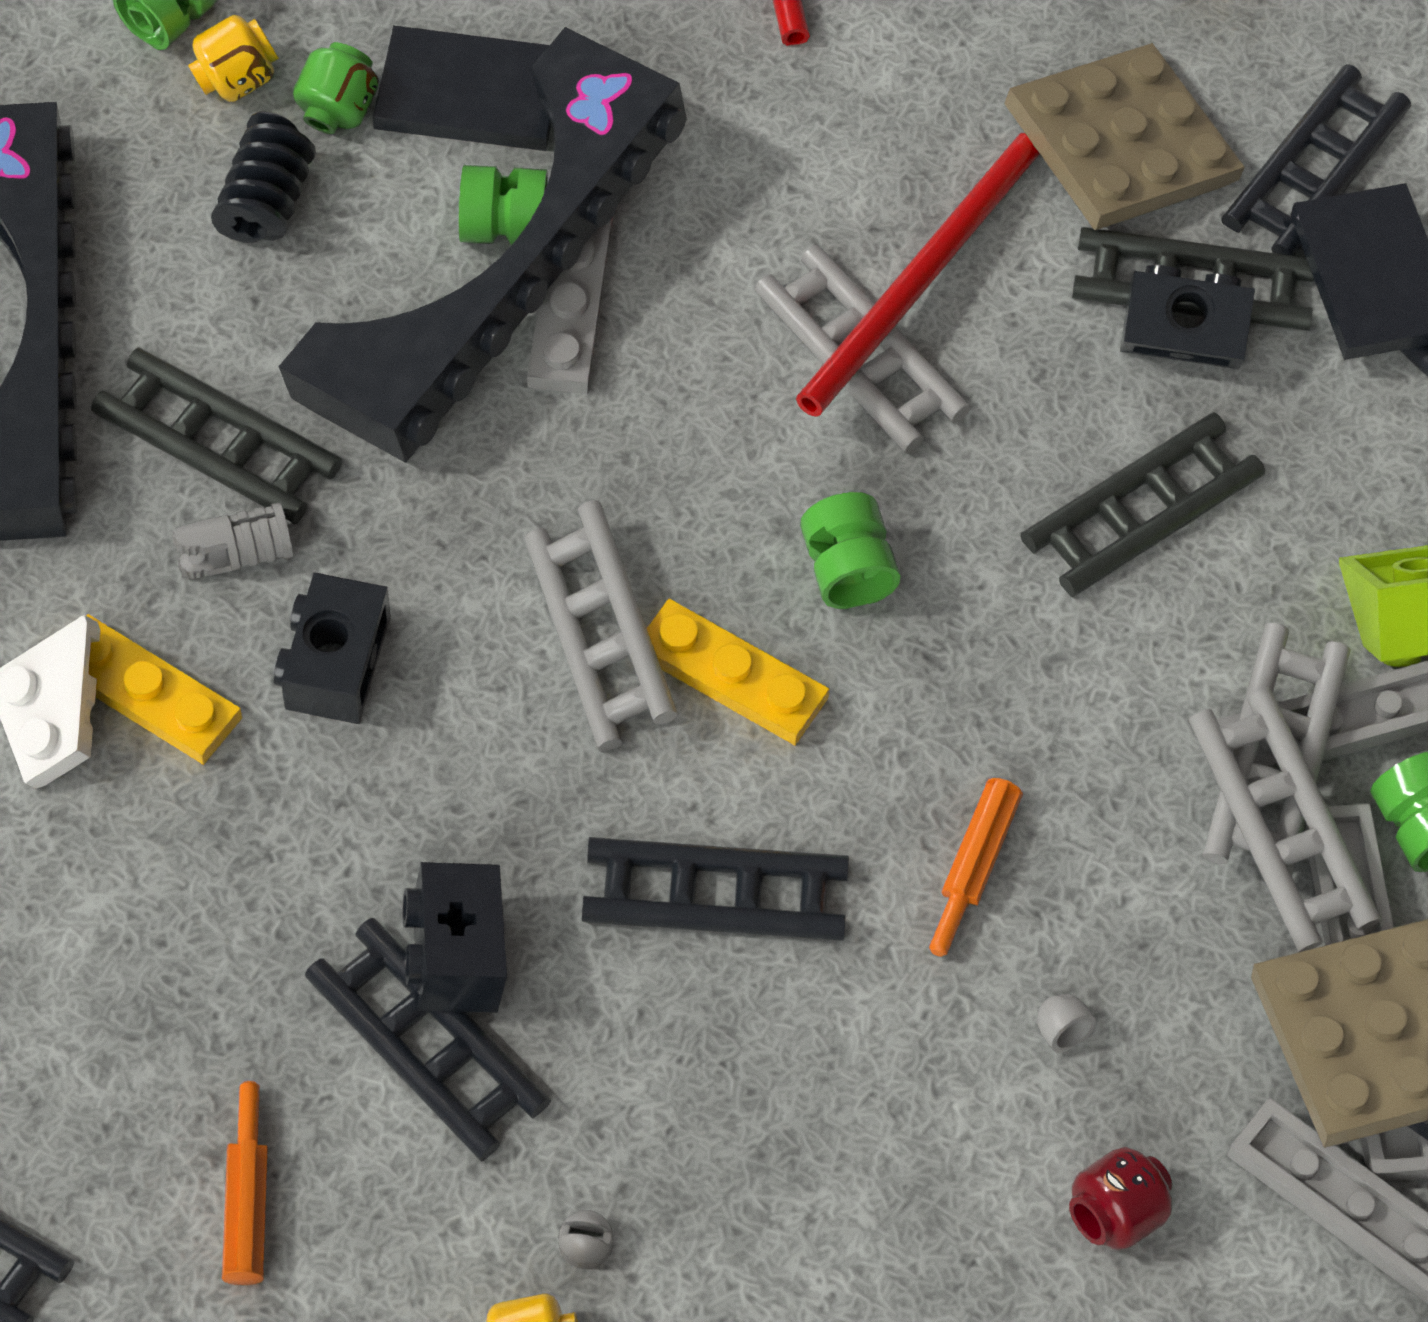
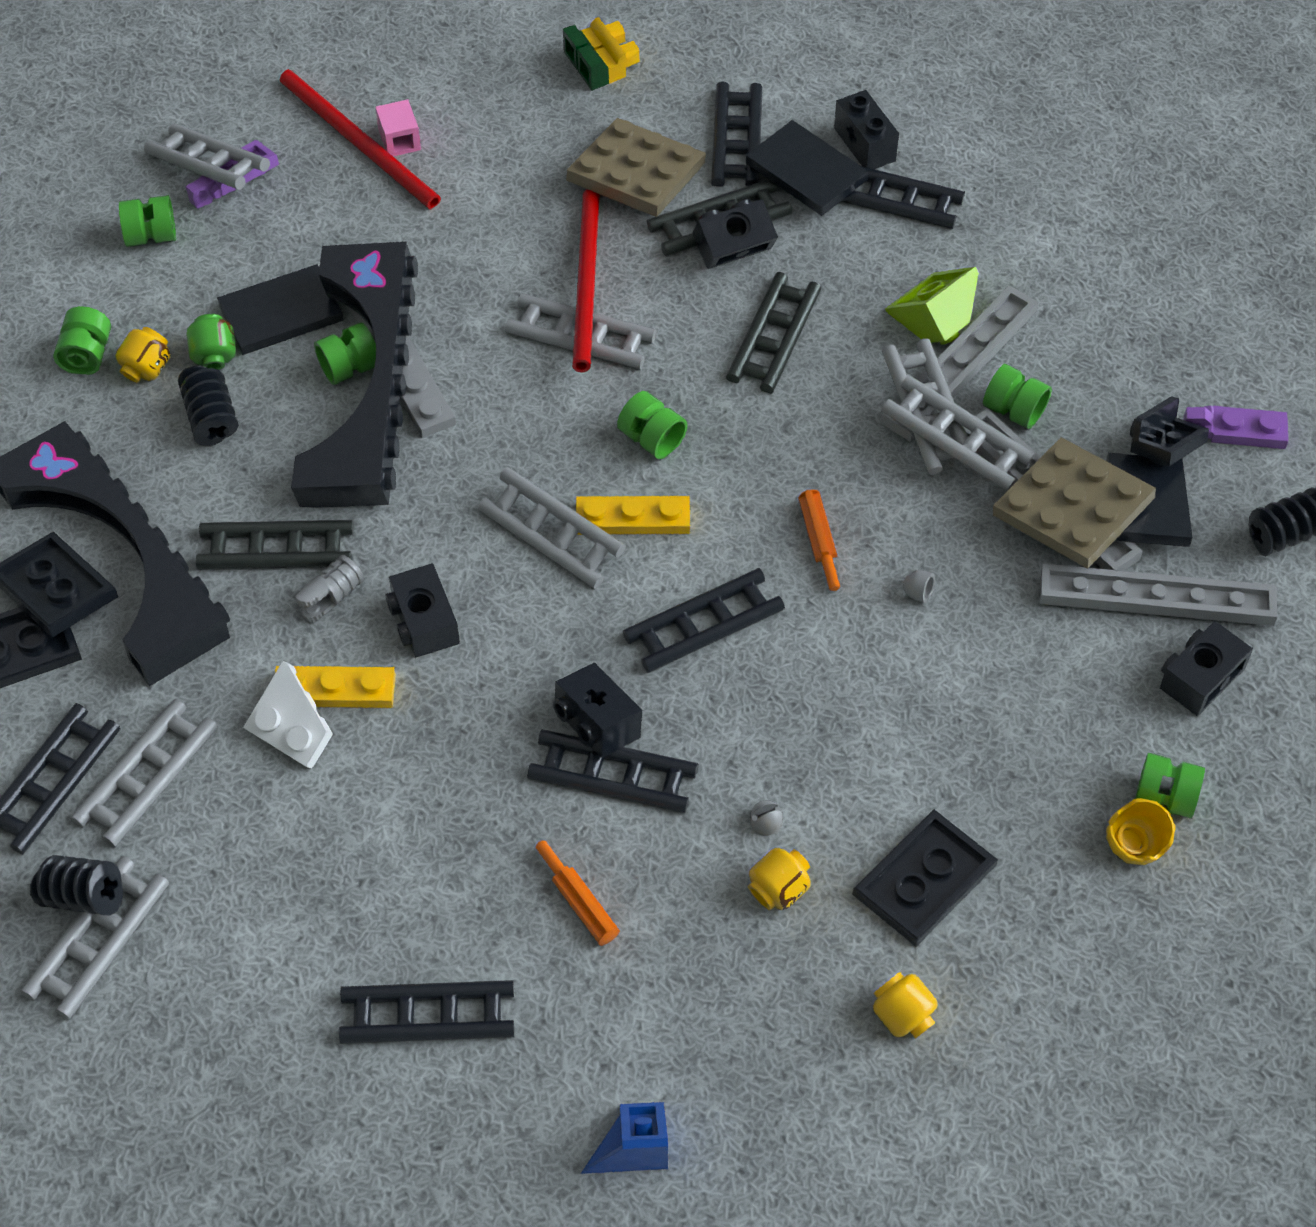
camera: 30 degrees left, 5 degrees down
(1121, 1198) = (1009, 647): dark red head -> none

